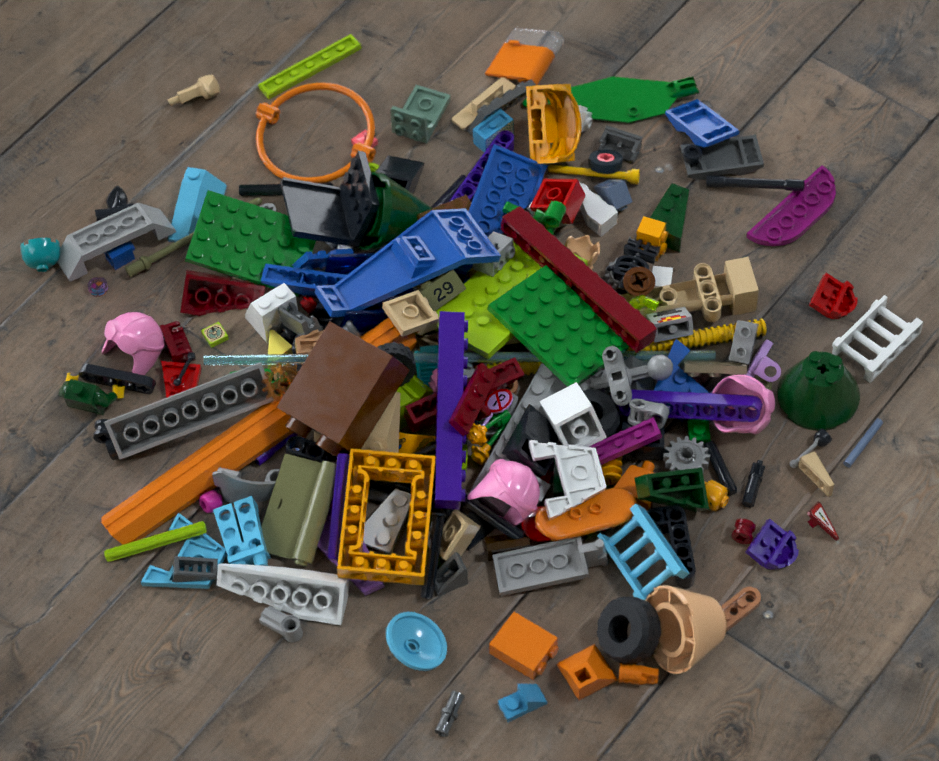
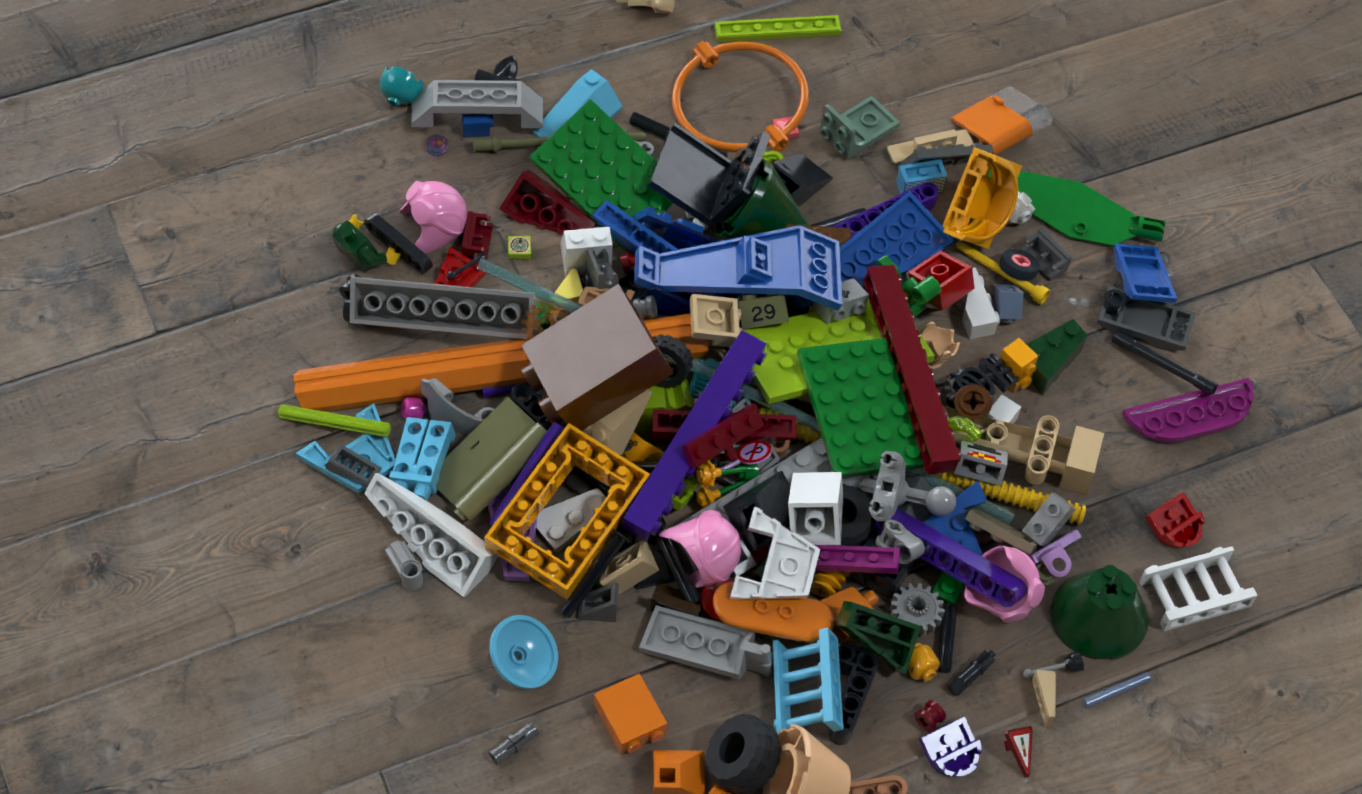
camera: 20 degrees right, 0 degrees up
(522, 702) = (595, 770): dark azure slope -> none

